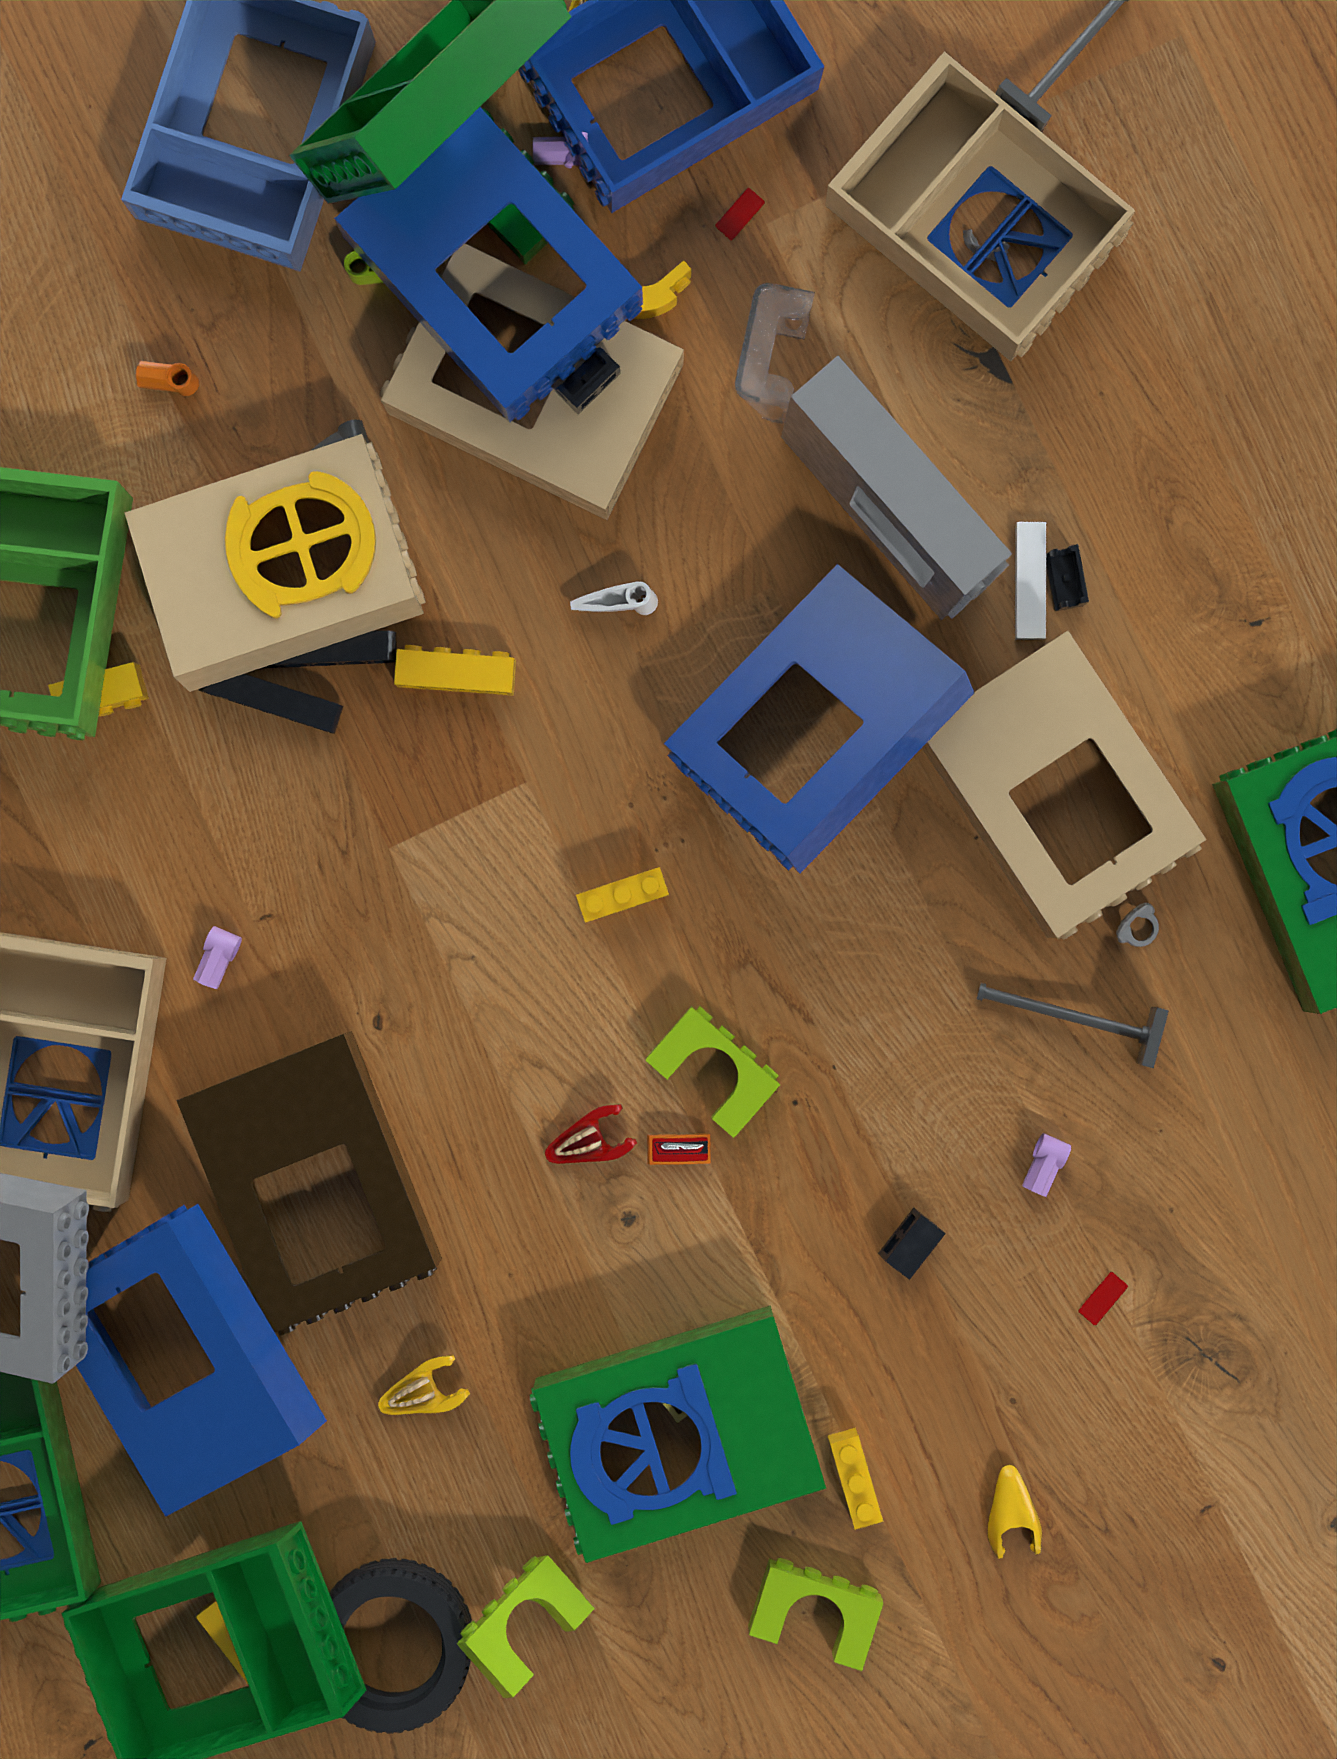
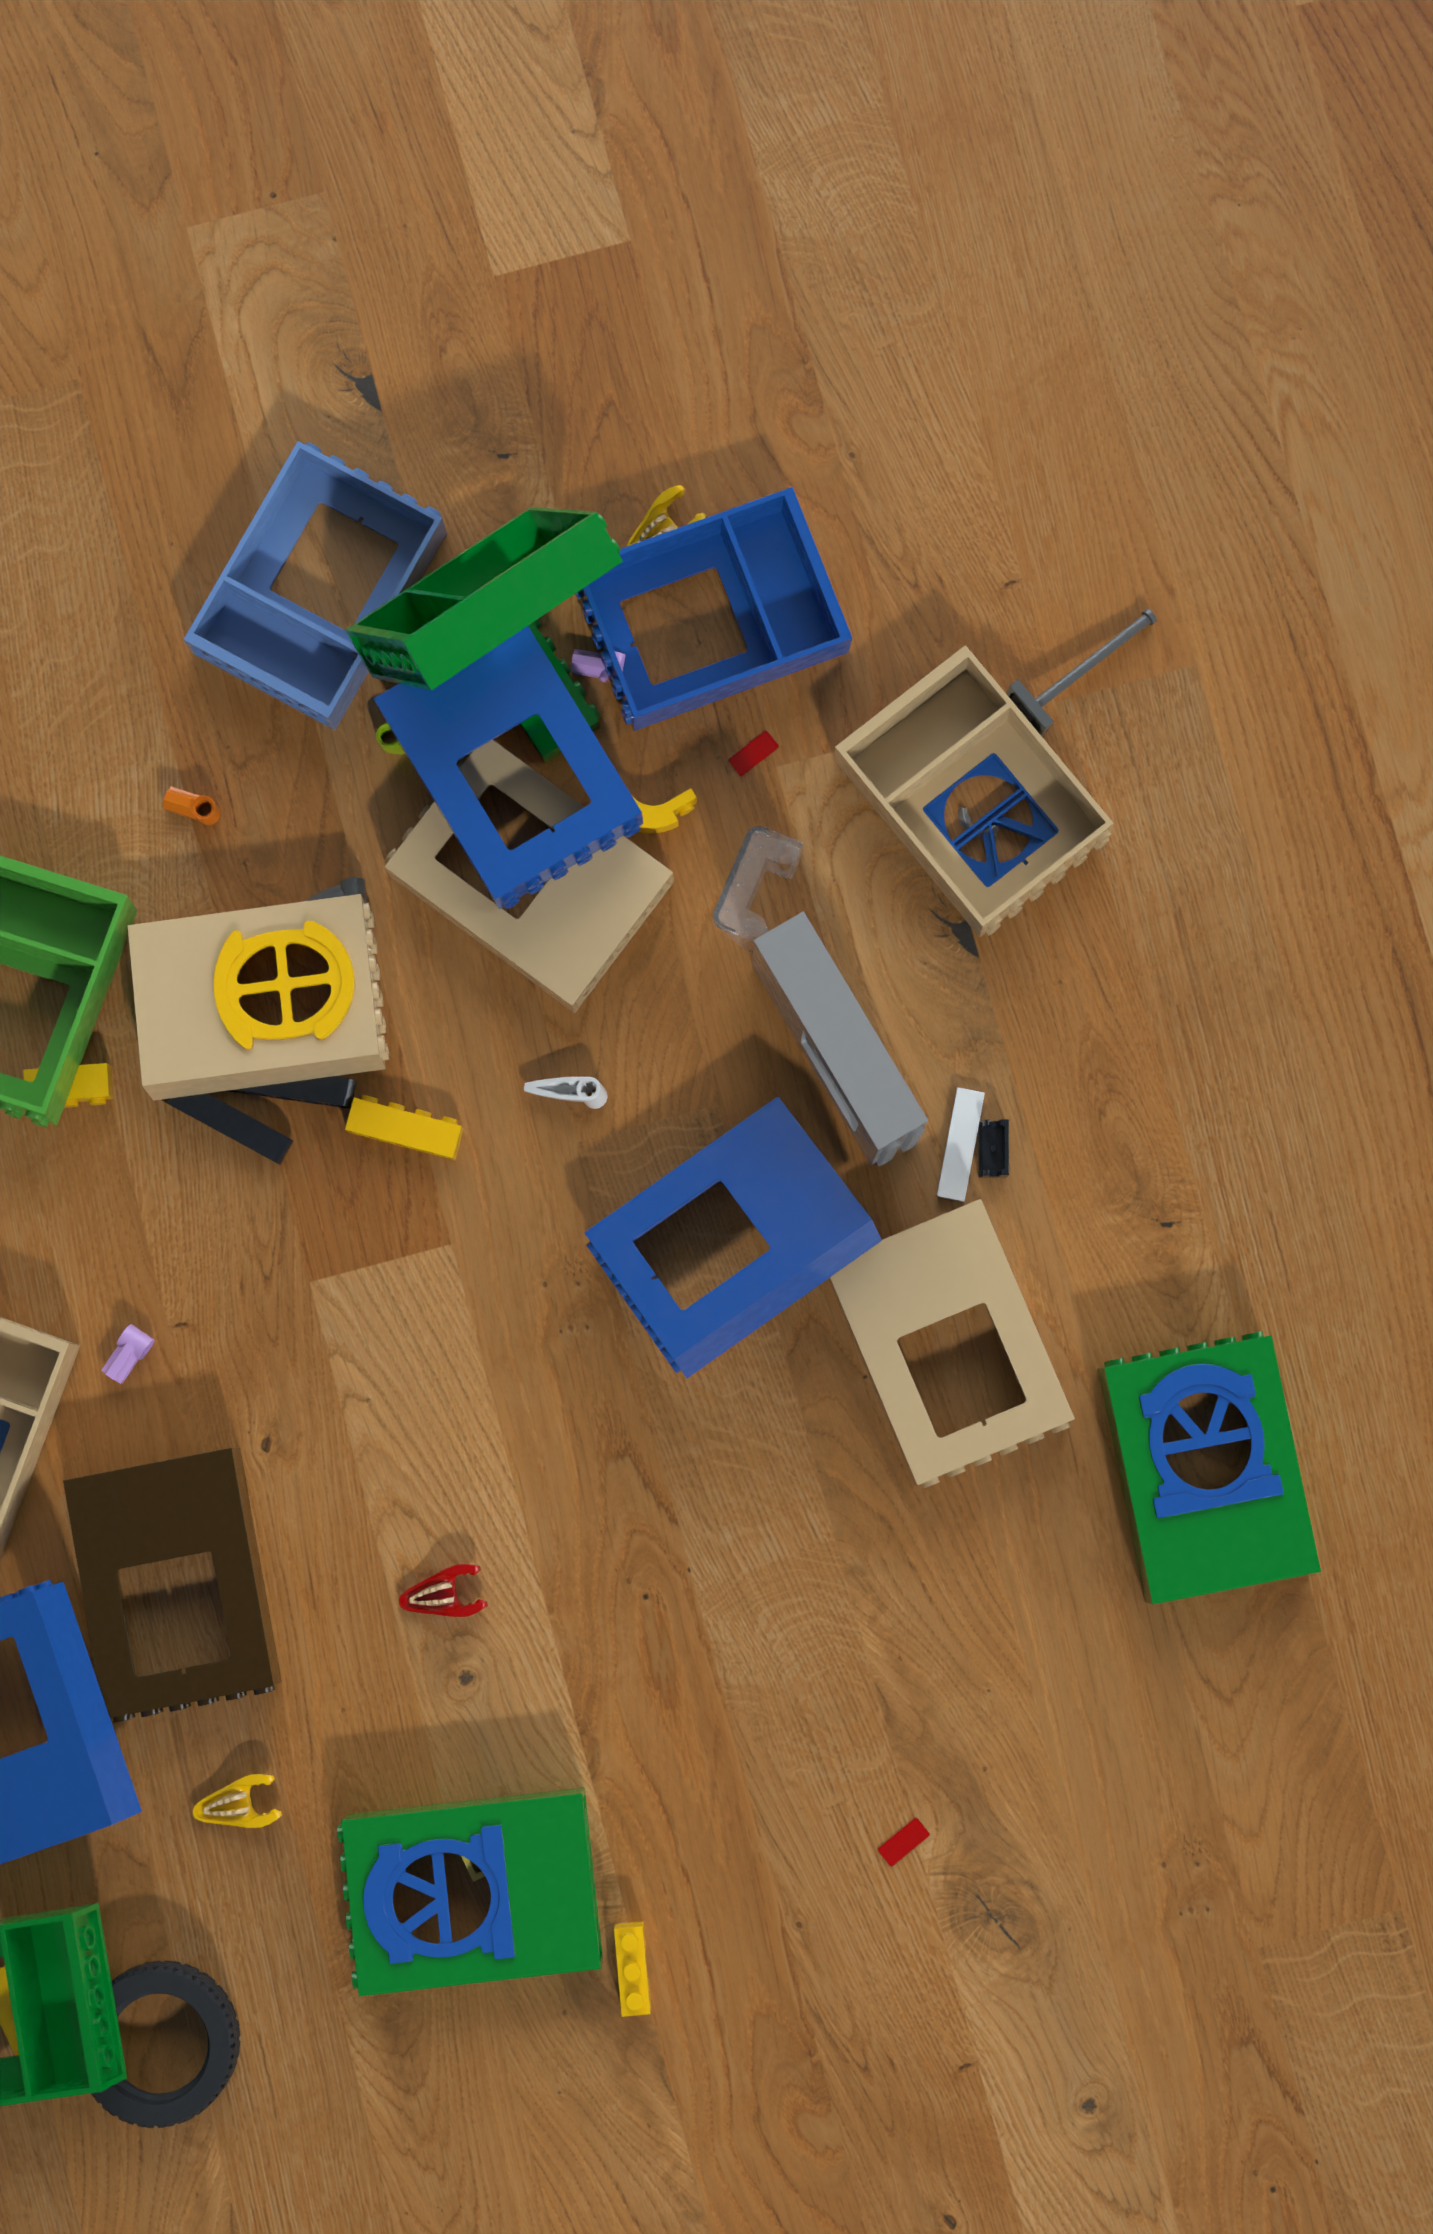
camera: 15 degrees right, 5 degrees down
(487, 1640) = (250, 2053): lime arch -> none
(588, 380) = (579, 885): black hinge -> none
(622, 894) = (519, 1367): yellow brick -> none
(678, 1149) = (526, 1619): slope -> none
(753, 1082) = (564, 1510): lime arch -> none
(786, 1584) = (548, 2059): lime arch -> none
(911, 1243) = (729, 1752): black hinge -> none
(1012, 1509) = (778, 2029): yellow animal -> none
(1048, 1156) = (875, 1696): lavender piece -> none
(1124, 930) = (986, 1492): light grey piece -> none
(1148, 1035) = (988, 1595): dark grey tile -> none

